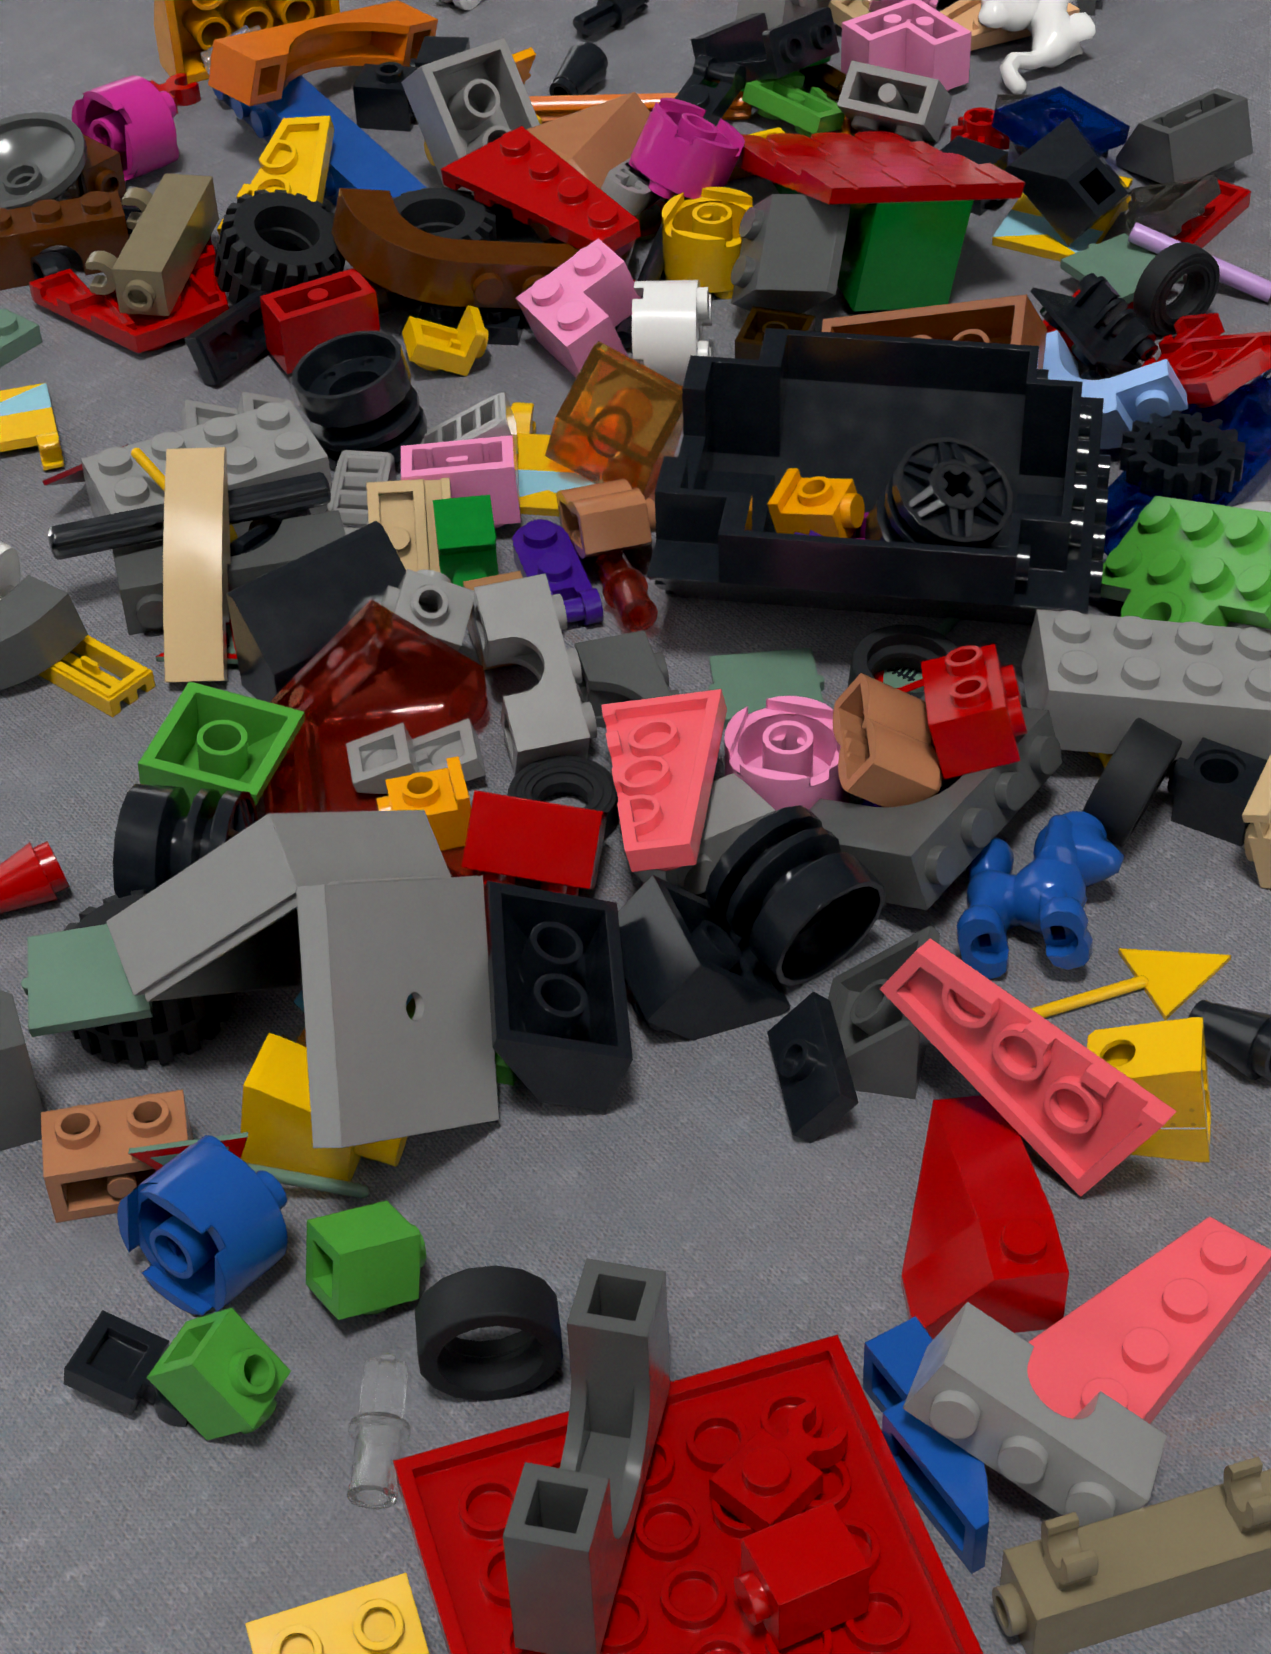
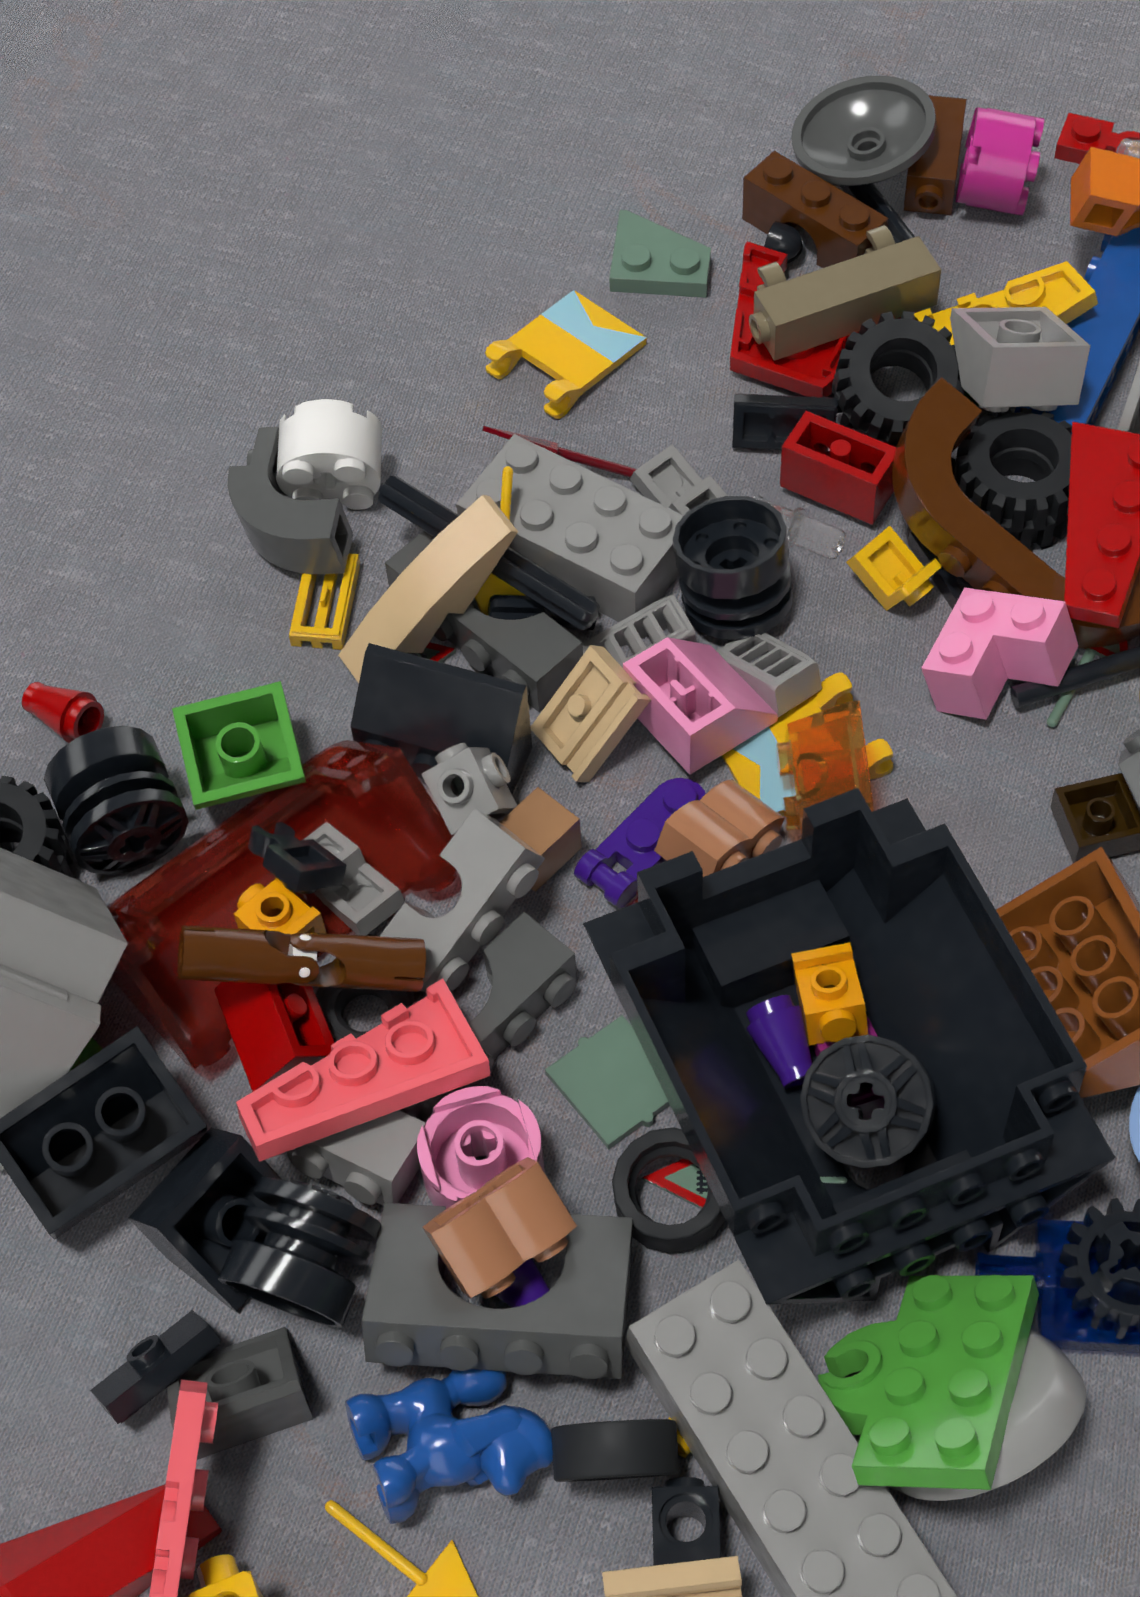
camera: 60 degrees right, 15 degrees up
(359, 159) = (1018, 357): none -> light grey slope
(396, 751) = (298, 864): none -> black plate
(466, 538) = (594, 761): green slope -> none
(527, 746) = (280, 958): none -> reddish brown piece
(670, 325) = (1012, 734): white brick -> none
(973, 710) = (564, 1274): red brick -> none

